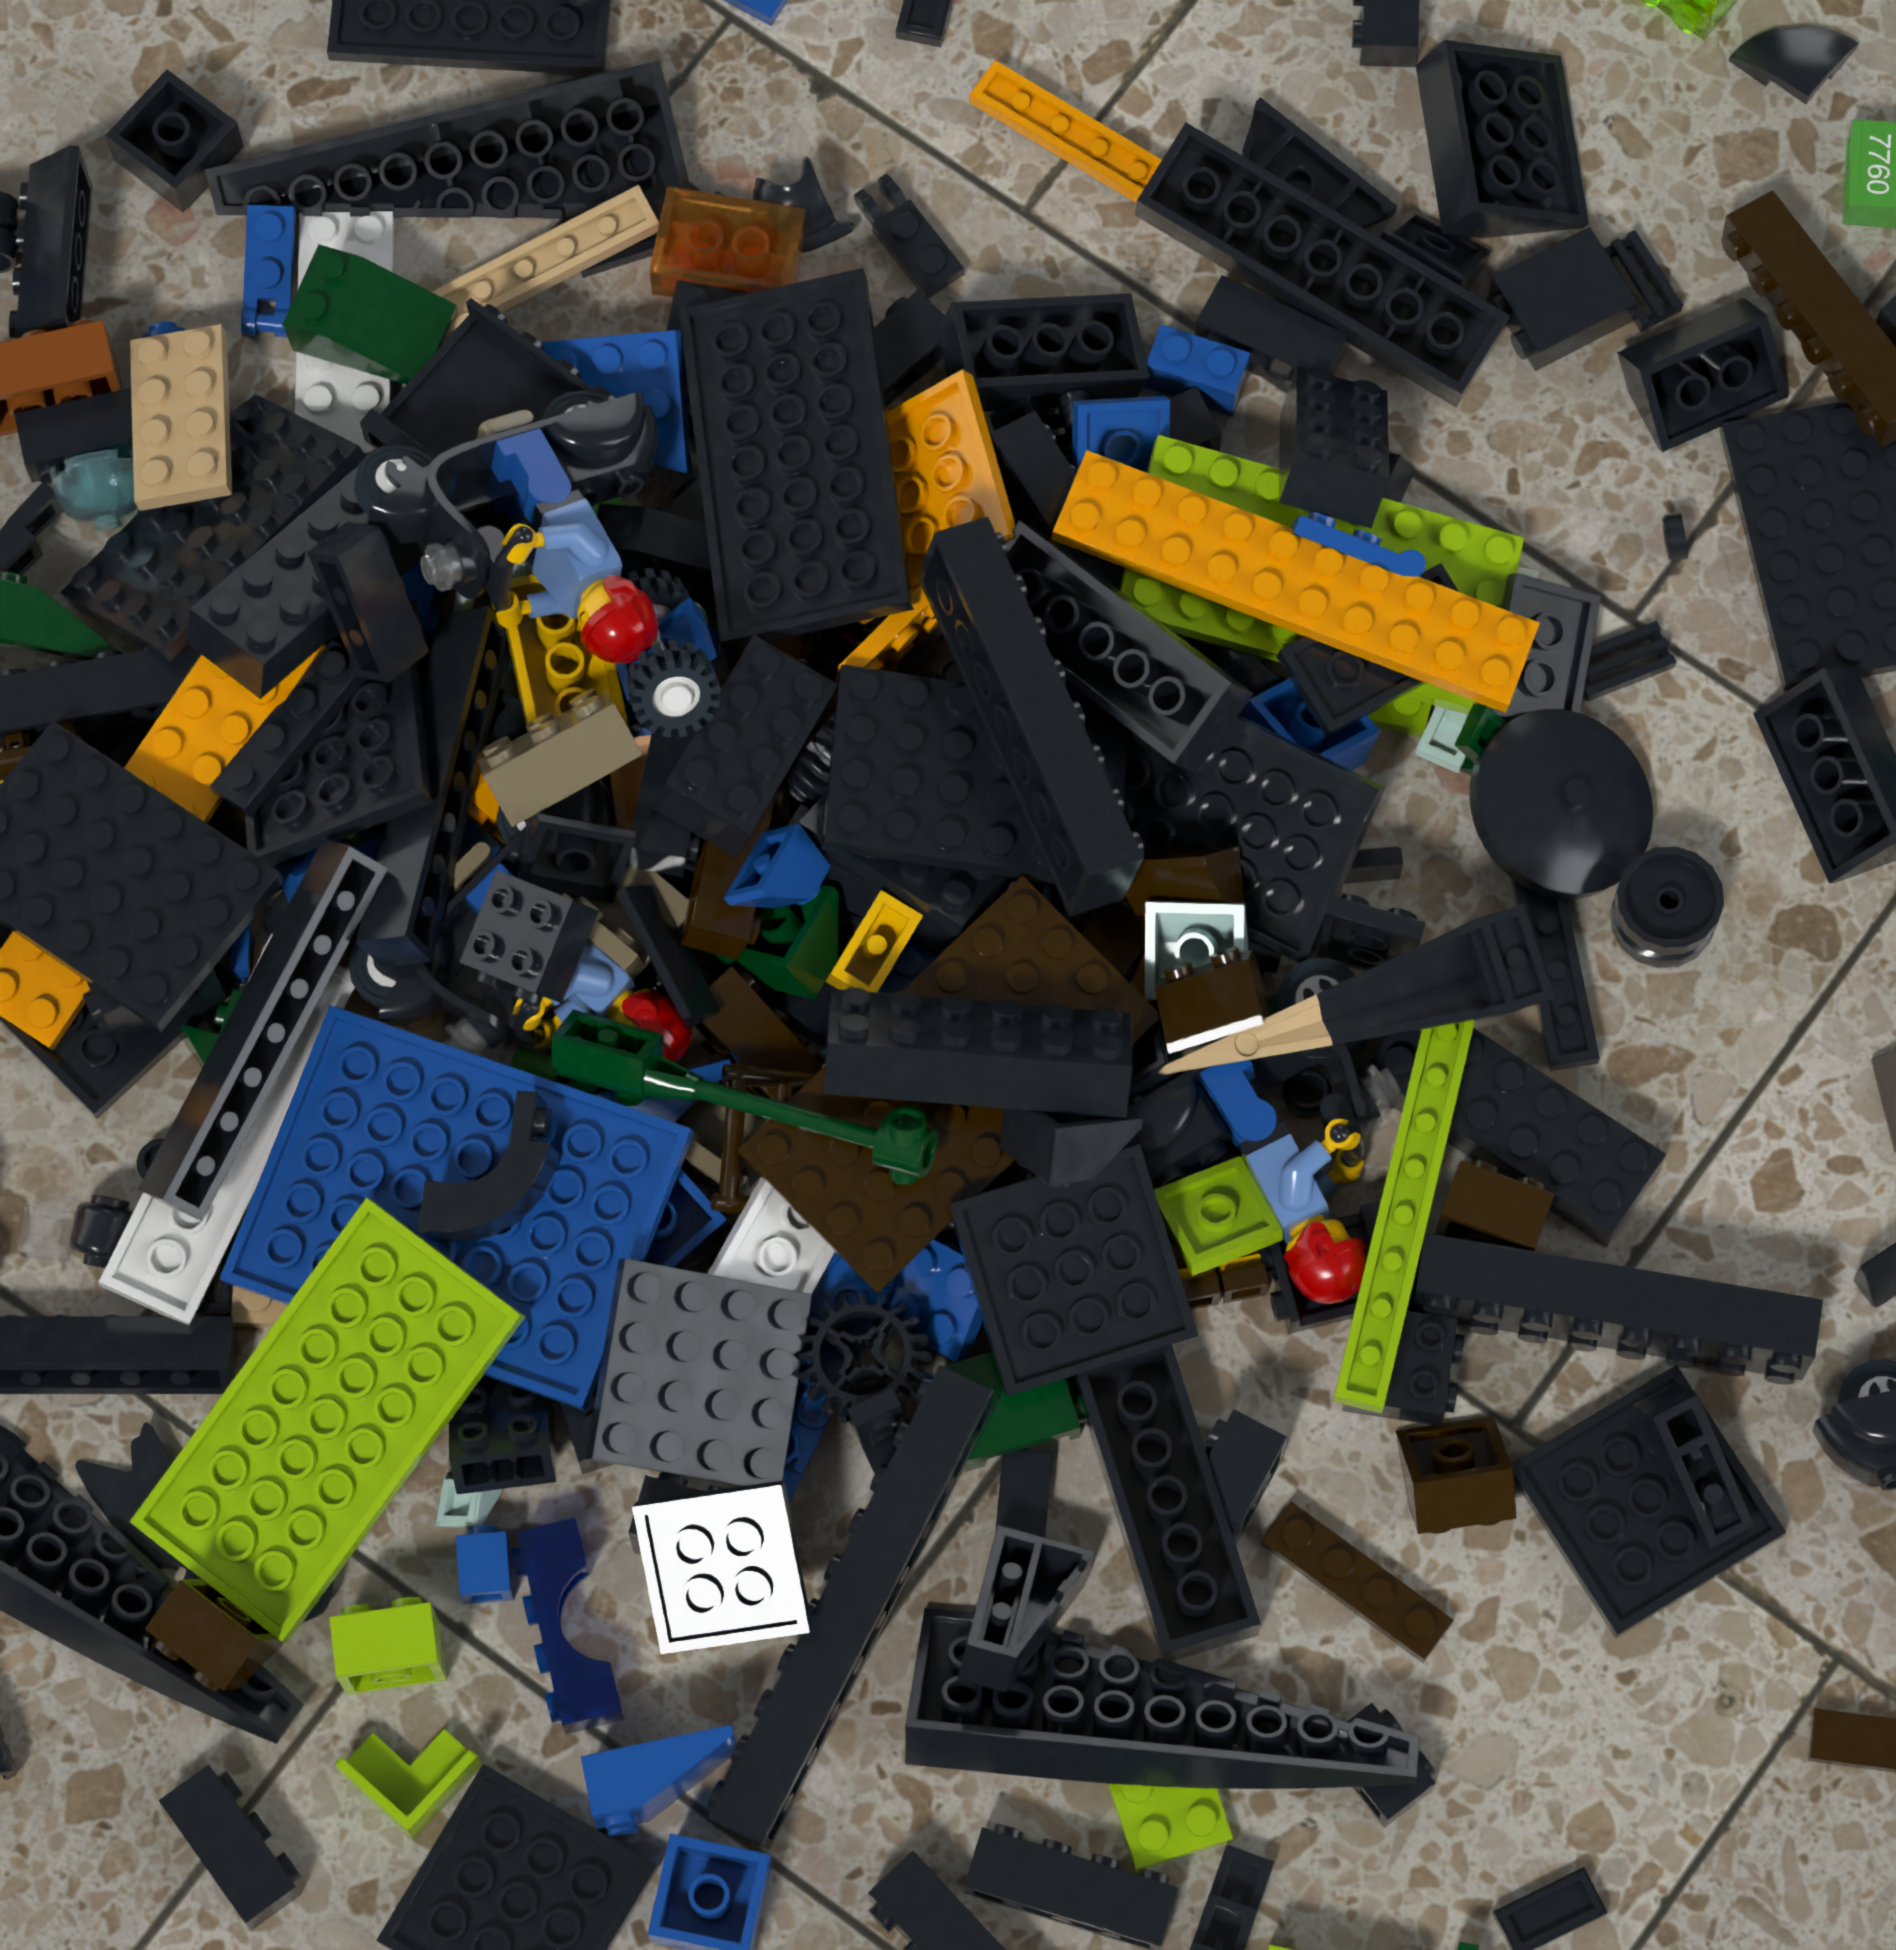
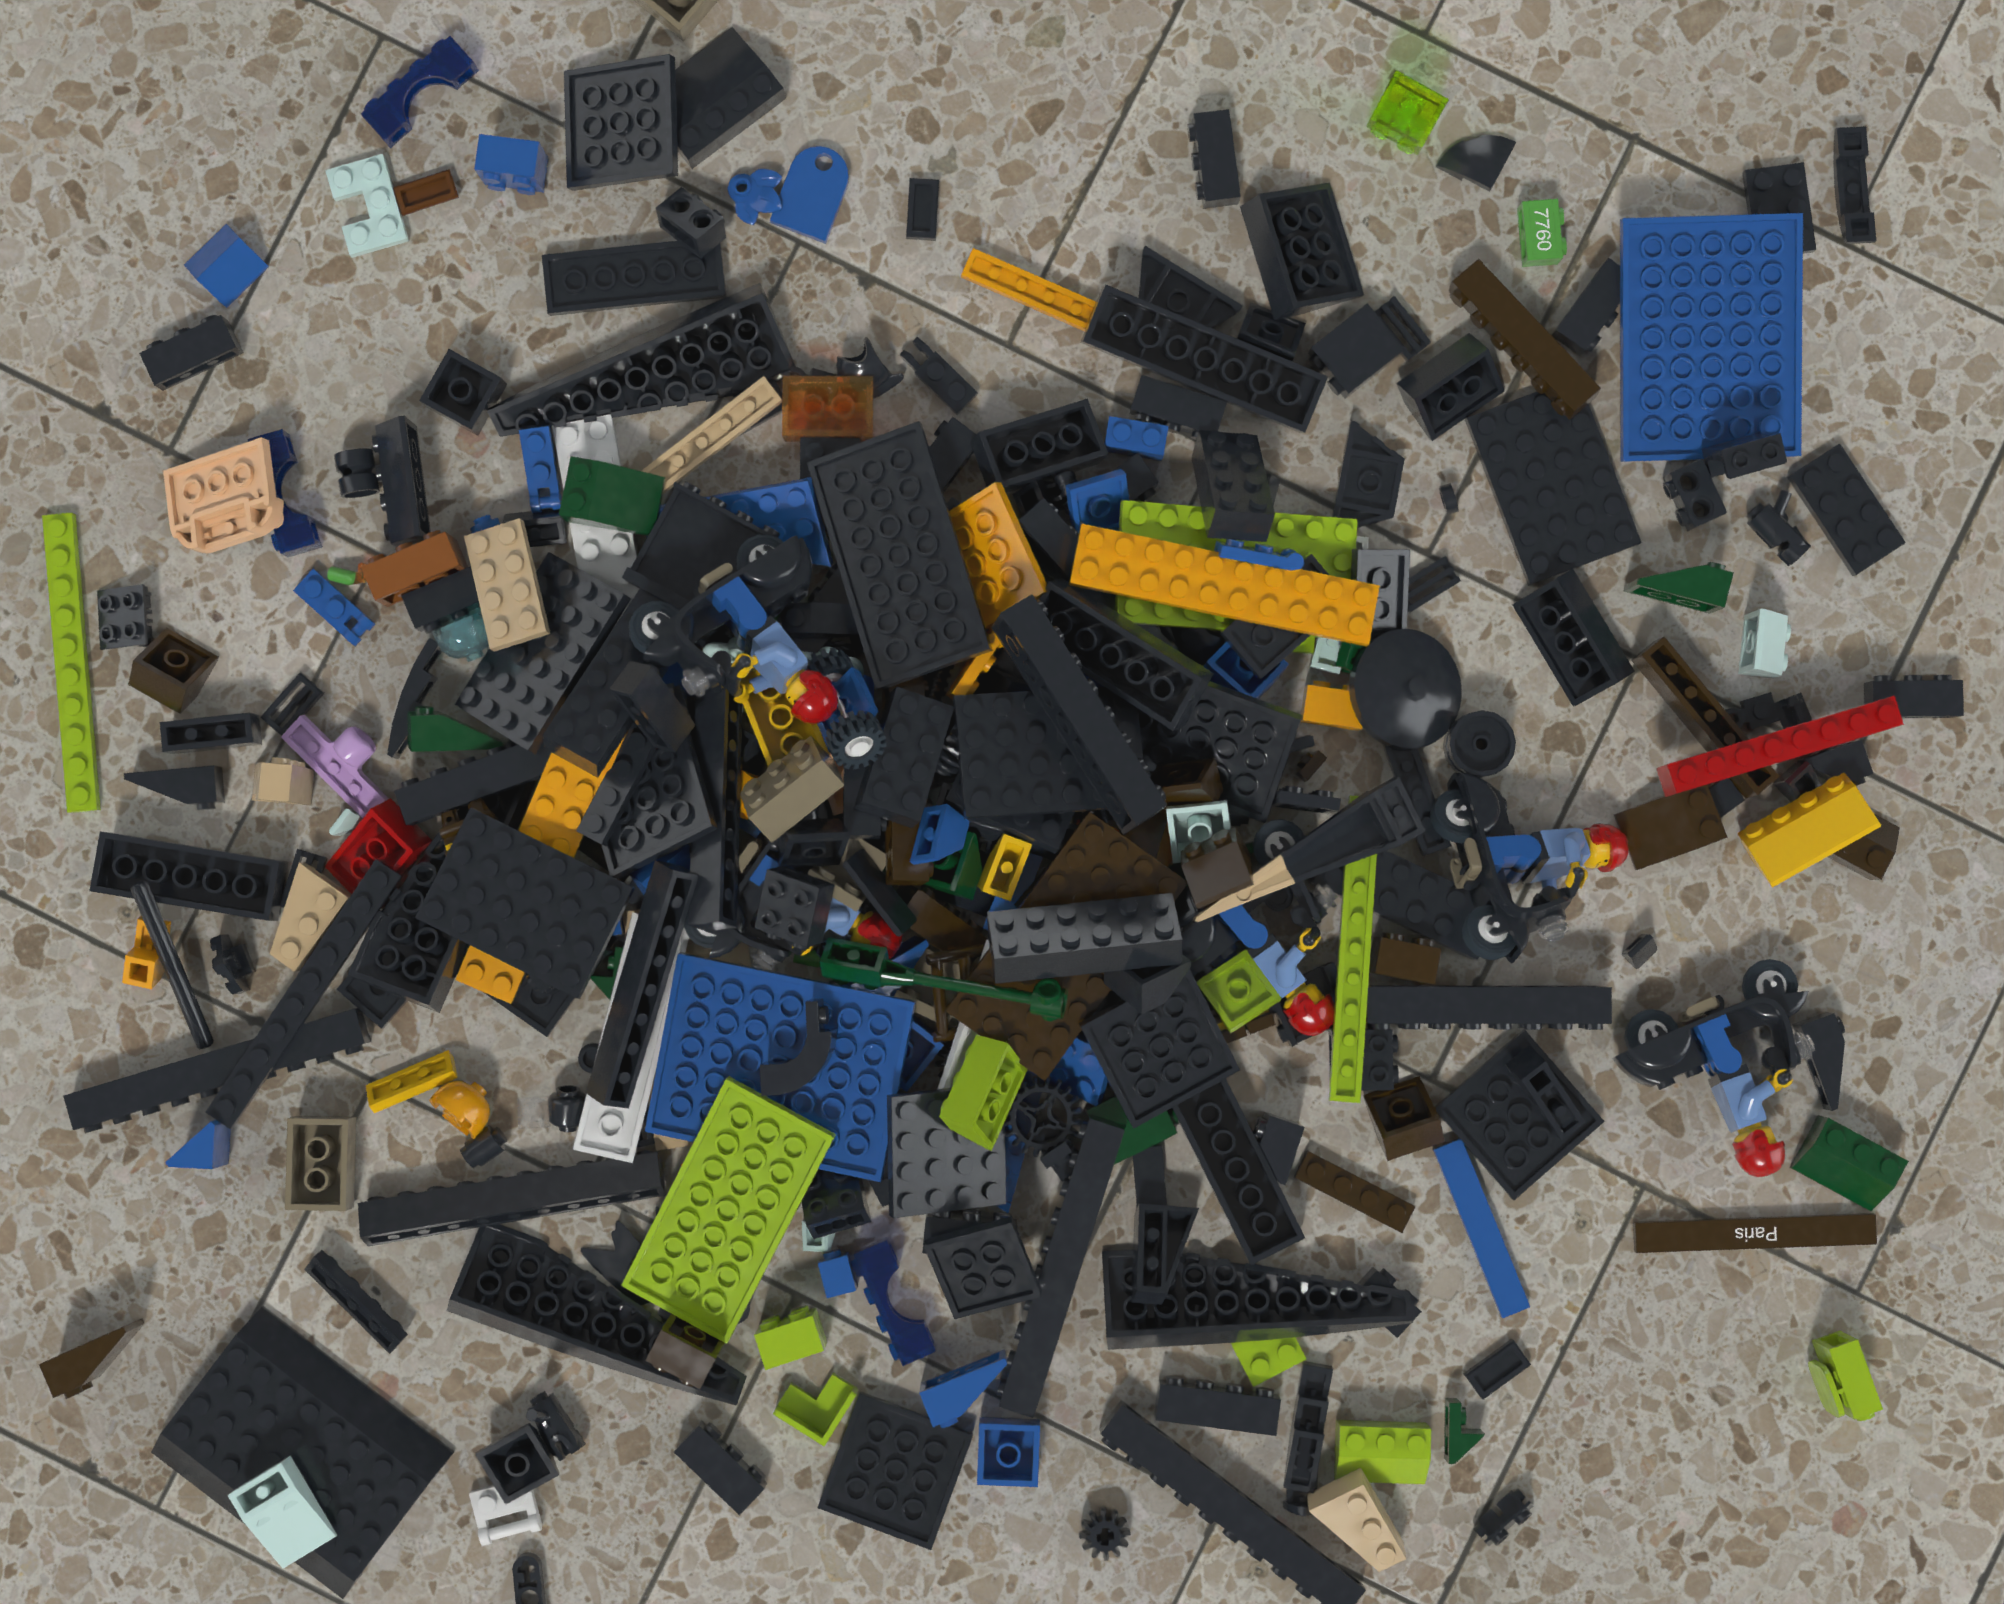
camera: 15 degrees left, 15 degrees up
(258, 361) = (542, 527): none -> black slope
(776, 1284) = (983, 1091): none -> lime slope
(1396, 893) = (1310, 764): none -> dark brown plate
(1435, 817) = (1328, 706): none -> light orange brick
(1552, 488) = (1367, 479): none -> black wing
(1558, 1677) = (1481, 1228): none -> blue tile
(1675, 1078) = (1493, 857): none -> piece

